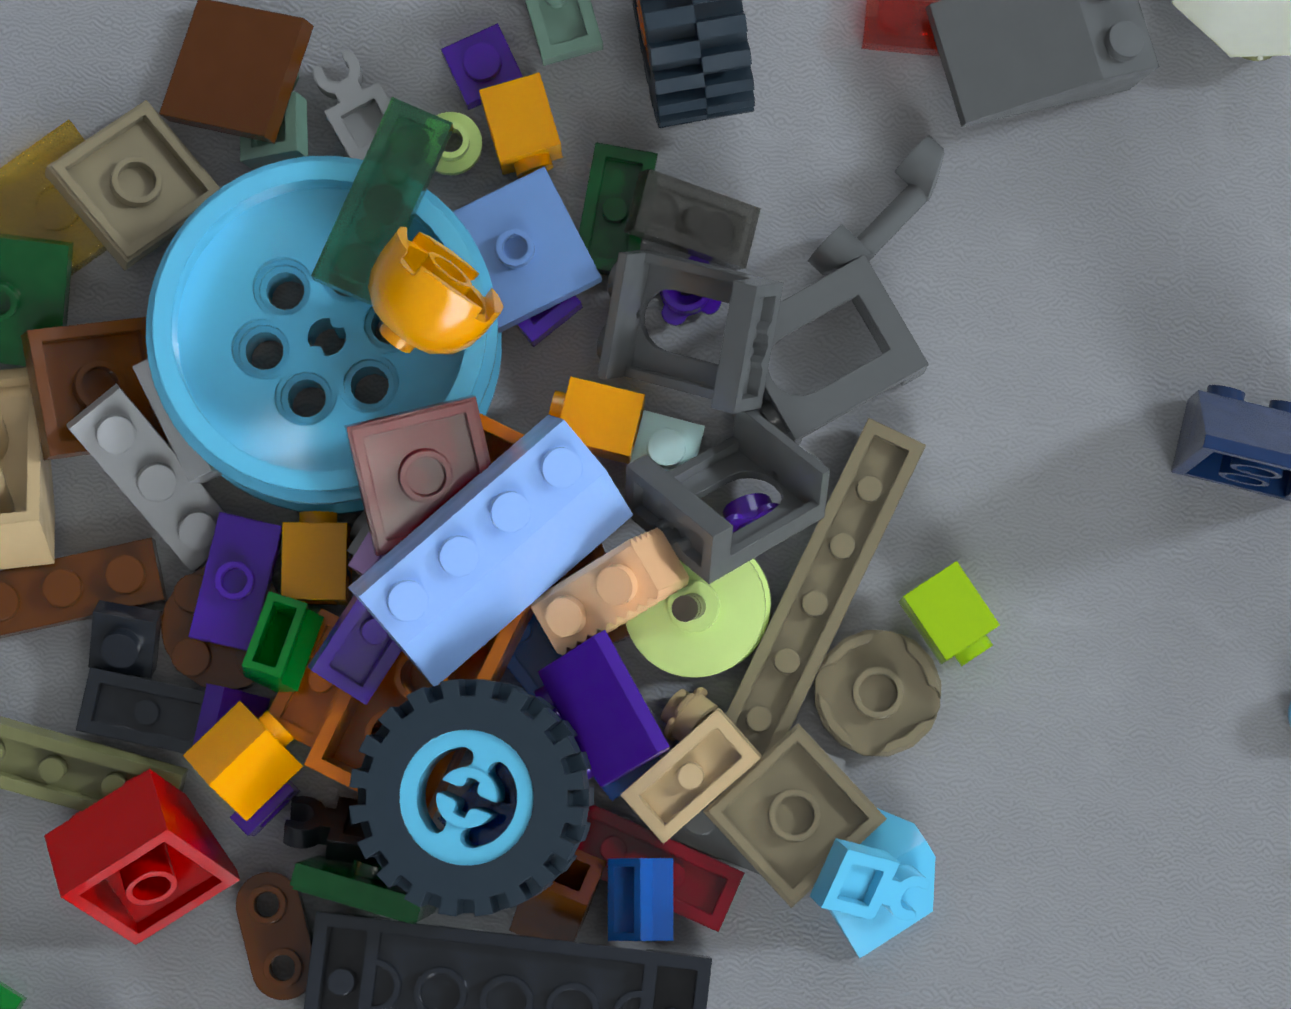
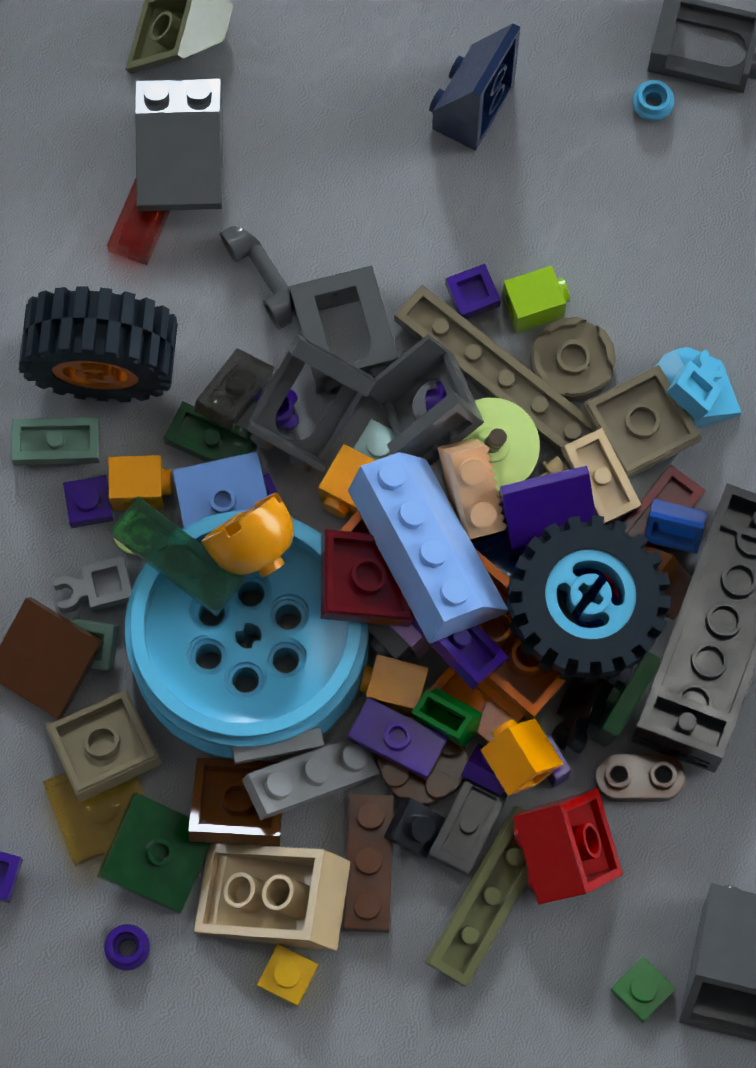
camera: 75 degrees left, 10 degrees down
(938, 522) = (473, 292): none -> dark purple plate

